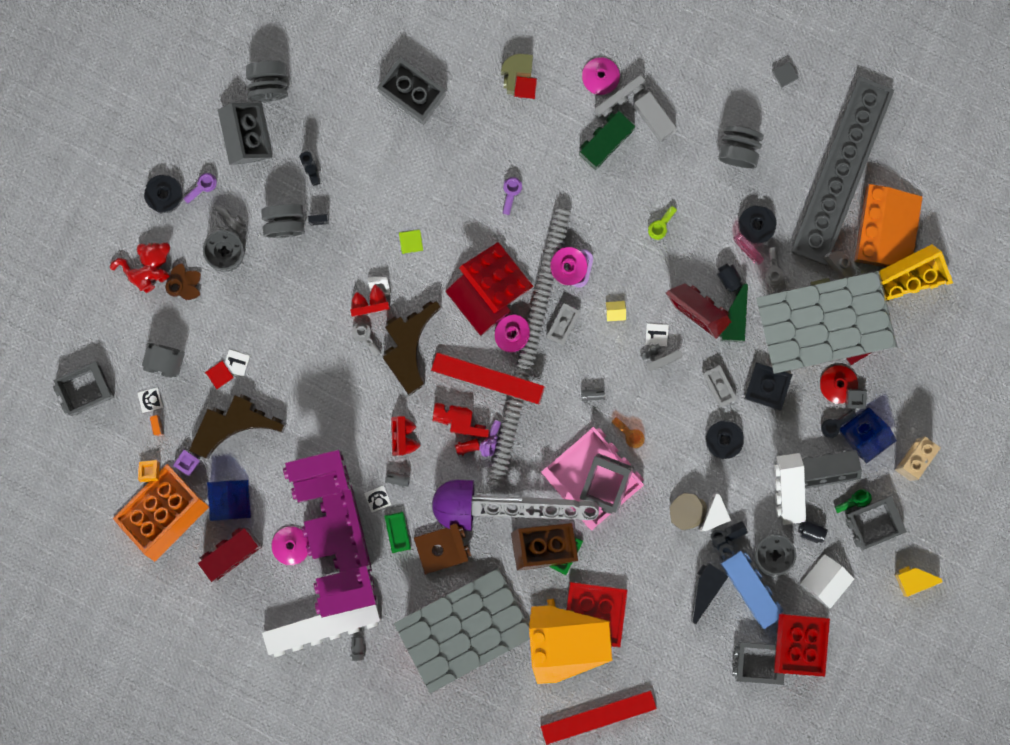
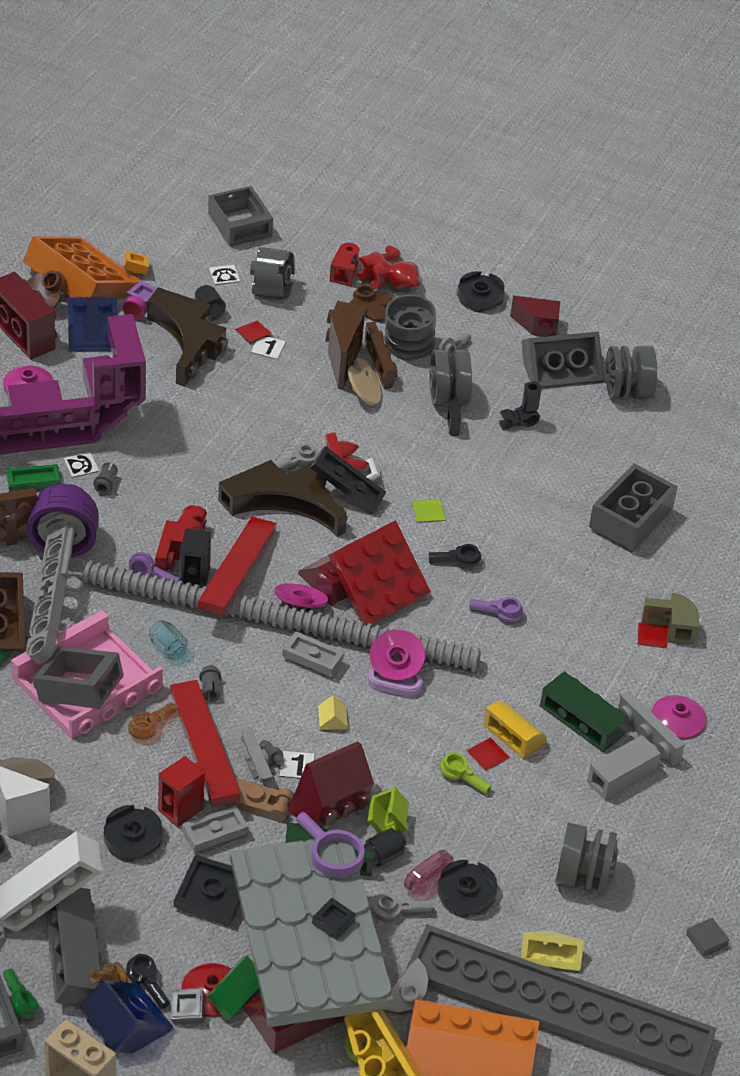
camera: 85 degrees right, 40 degrees down
(139, 304) = (344, 264): none -> red leg
(156, 425) = (192, 271): orange tile -> none
(192, 542) = (48, 286): none -> reddish brown plate
(193, 409) = (210, 296): none -> black brick
(195, 149) = (536, 315): none -> dark red slope
(205, 468) = (135, 306): none -> tile
(206, 182) = (495, 325): medium lavender plate -> none
(241, 303) = (344, 338): none -> reddish brown slope
(249, 274) = (380, 355): none -> reddish brown plate
(287, 286) = (366, 387): none -> tan piece
(399, 299) = (348, 479): none -> black plate
(400, 443) = (153, 480): red tile -> none
(461, 215) = (465, 556): none -> black plate
(467, 447) = (142, 543): red pin -> none
(487, 408) = (195, 557): none -> black brick
(558, 424) = (168, 640): none -> clear light blue brick
(622, 187) = (513, 729): none -> yellow brick
(640, 207) = (488, 753): none -> red sticker
(650, 396) = (205, 742): none -> red tile
(689, 364) = (256, 800): none -> medium nougat plate
(699, 408) = (181, 791): none -> red brick
(703, 273) = (387, 807): none -> lime window
(763, 315) = (322, 838): none -> medium lavender piece
(800, 173) = (552, 949): none -> light yellow slope
(826, 307) = (334, 918): none -> black tile
(841, 444) = (110, 972): none -> clear orange plate
(845, 370) = (235, 988): none -> green tile

